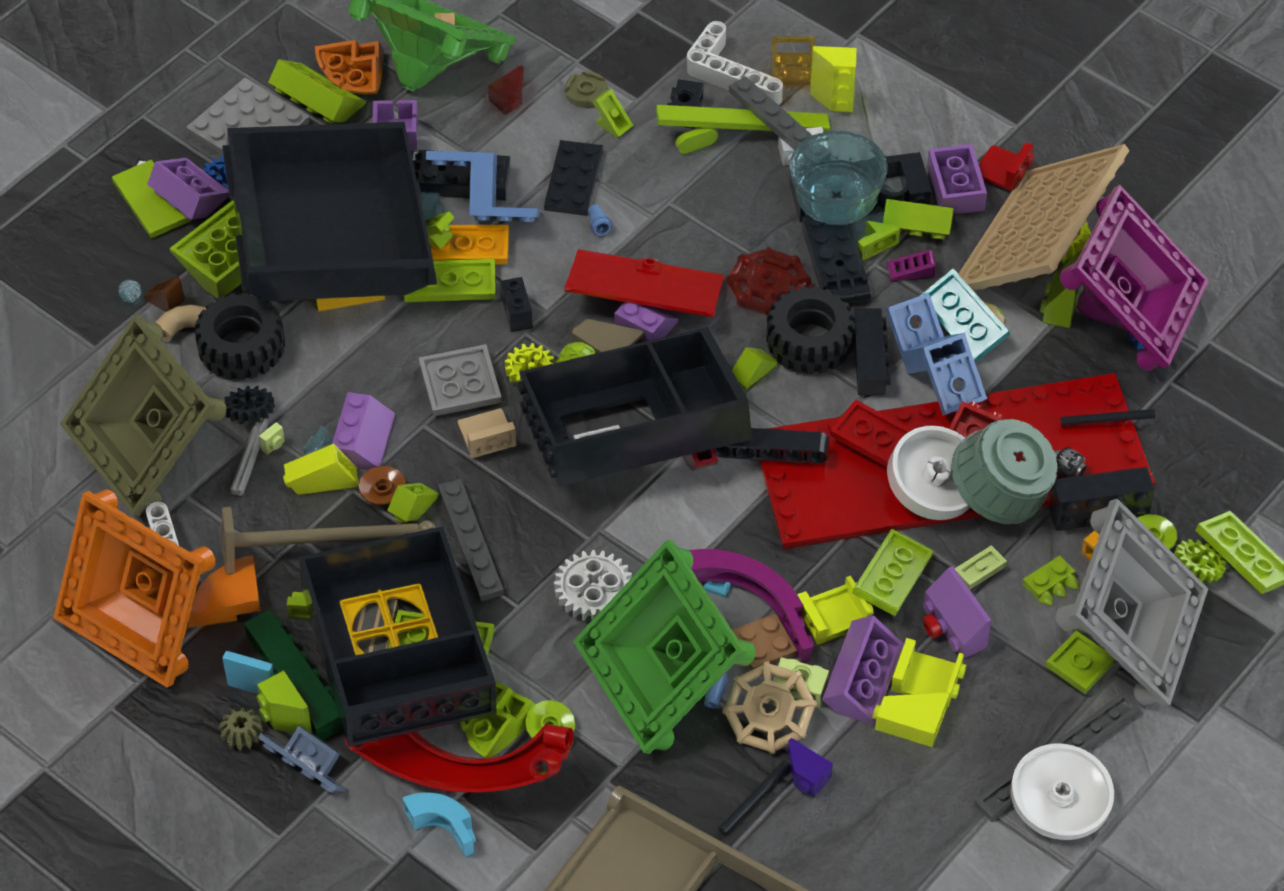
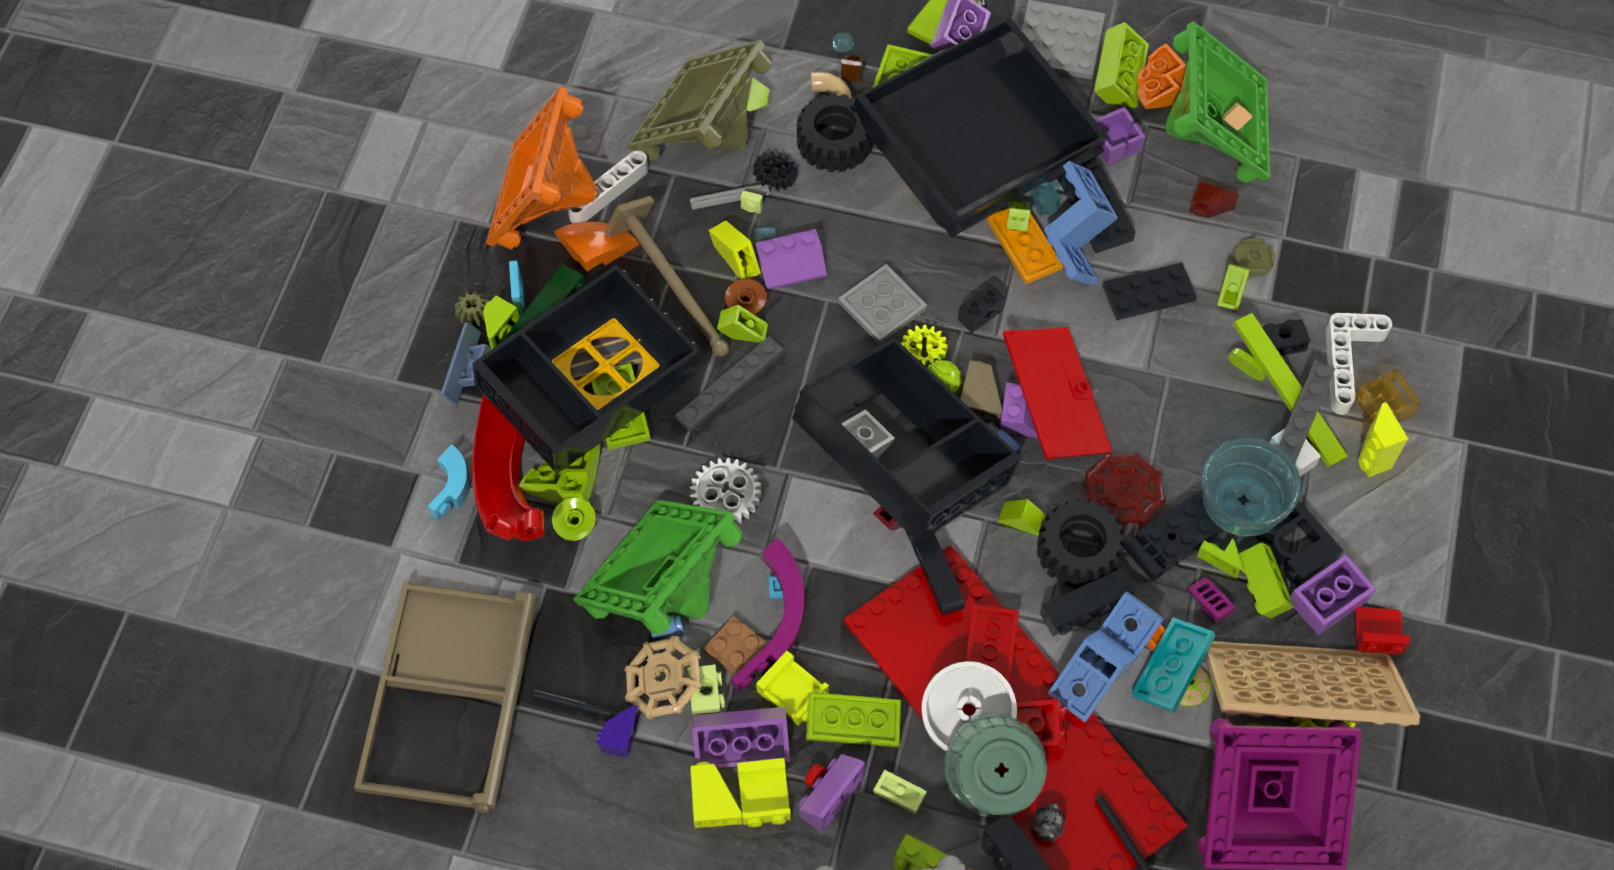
camera: 65 degrees right, 10 degrees up
(459, 281) = (984, 255): lime plate -> none
(487, 433) = (838, 345): tan bracket -> none
(599, 221) = (1110, 330): medium blue cone -> none

